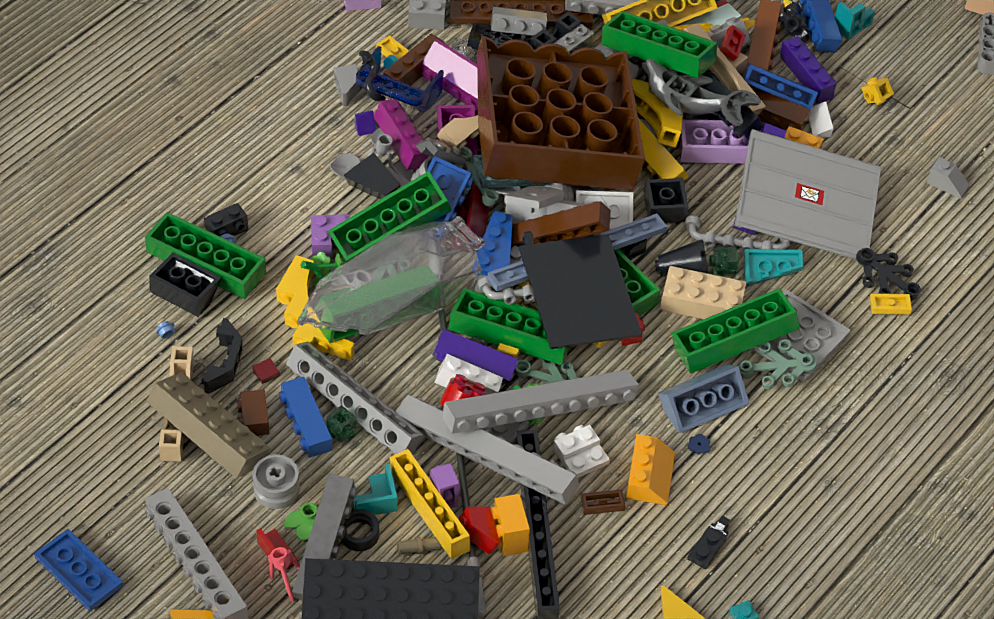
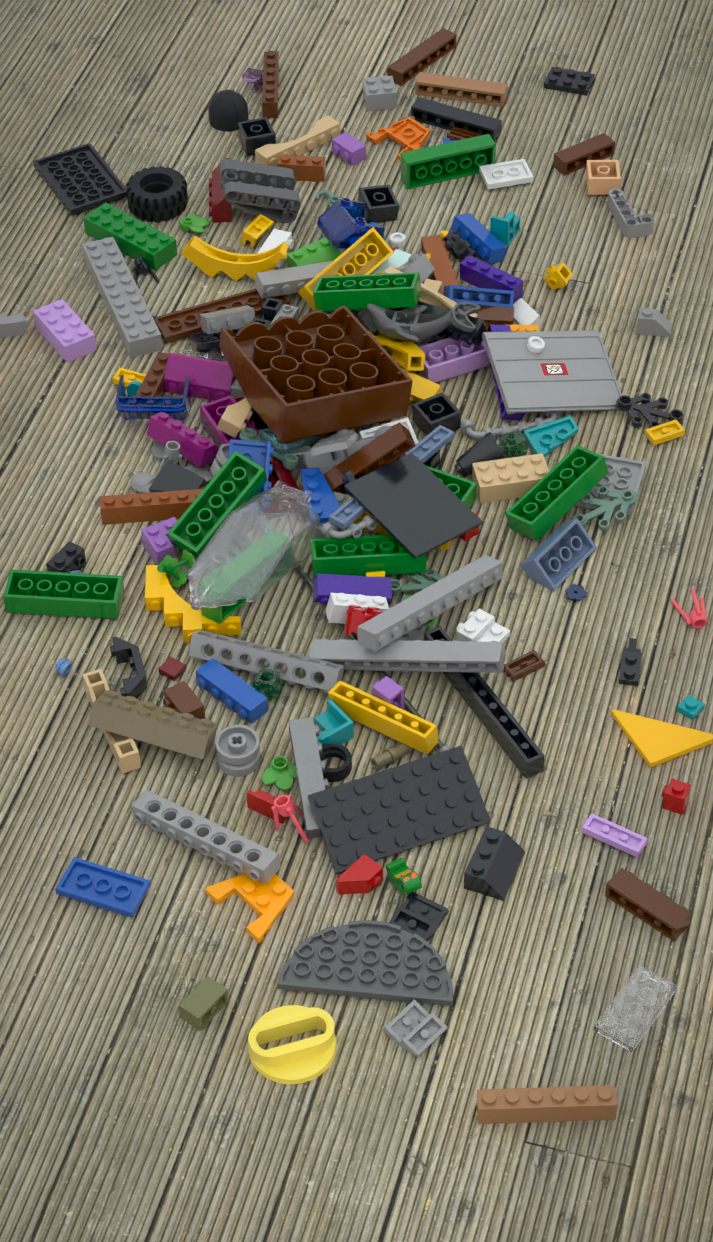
camera: 20 degrees left, 5 degrees down
(184, 284) = (59, 623): black slope -> none
(330, 191) = (146, 506): none -> dark orange brick
(346, 82) = (104, 416): light grey slope -> none
(365, 123) = (140, 443): dark purple slope -> none
(368, 58) = (122, 385): black animal -> none
(438, 149) = (224, 435): dark grey plate -> none
(480, 527) = (438, 714): red slope -> none
(511, 524) = (462, 708): light orange brick -> none
(650, 470) = (547, 626): light orange slope -> none
(732, 42) = (426, 273): red plate -> none
(801, 161) = (535, 344): none -> white tile
(805, 520) = (697, 617): none -> coral plant

